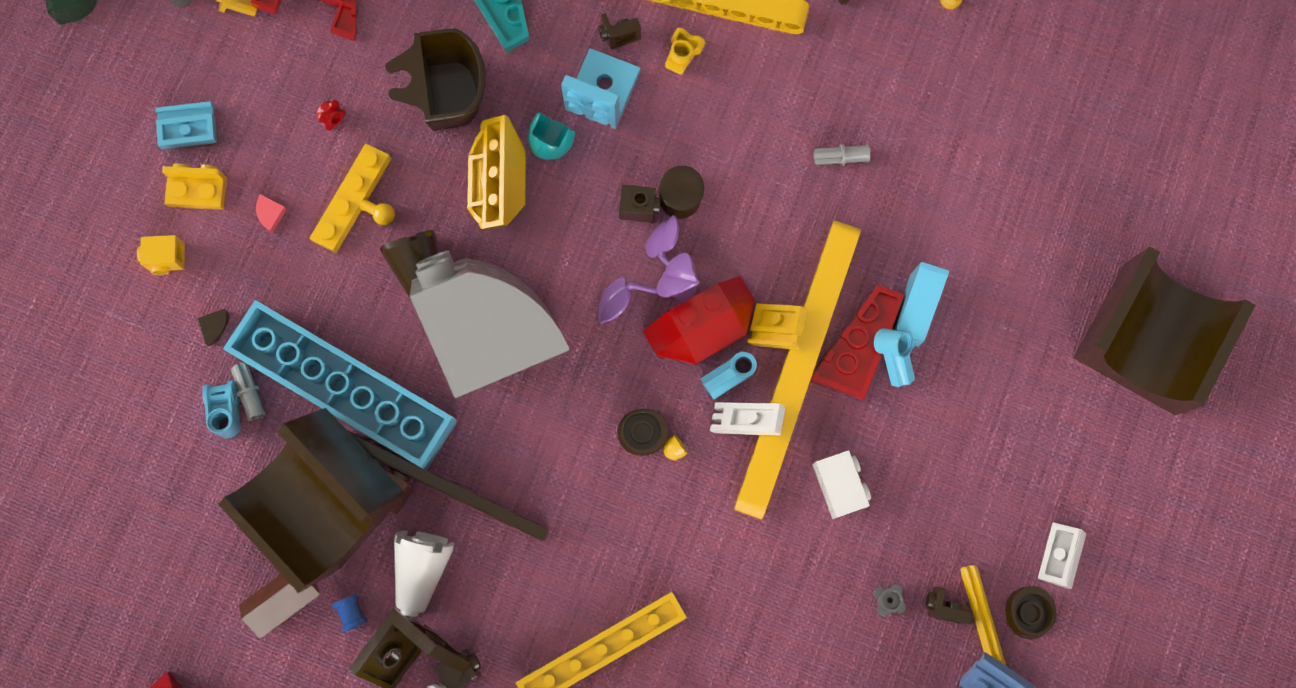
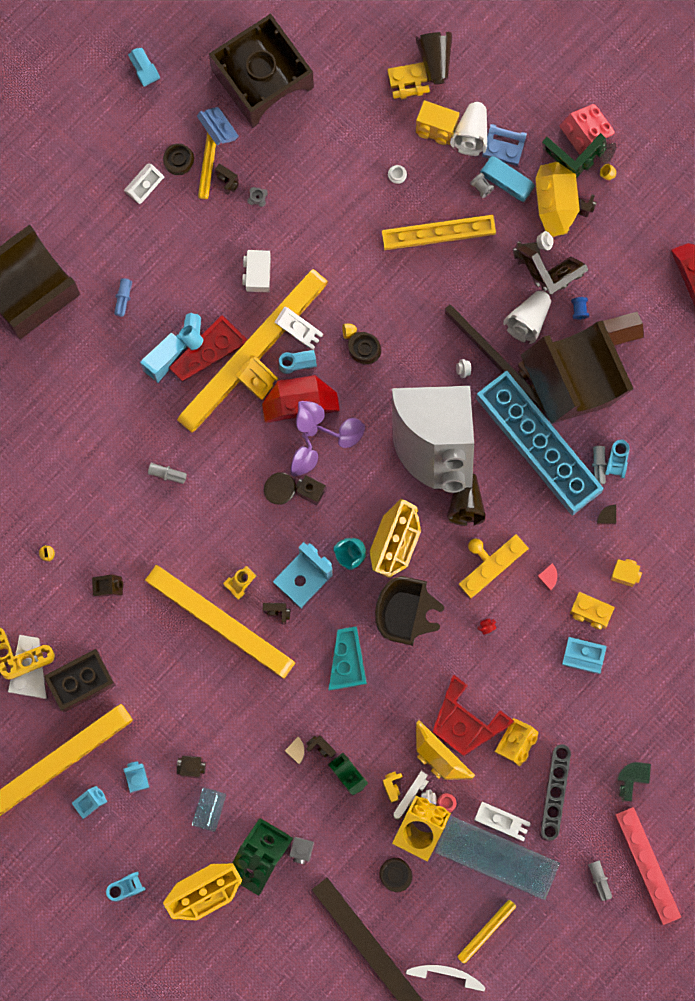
camera: 155 degrees left, 0 degrees up
(489, 456) = (463, 368): none -> white plate
(1013, 372) = (122, 297): none -> medium blue axle

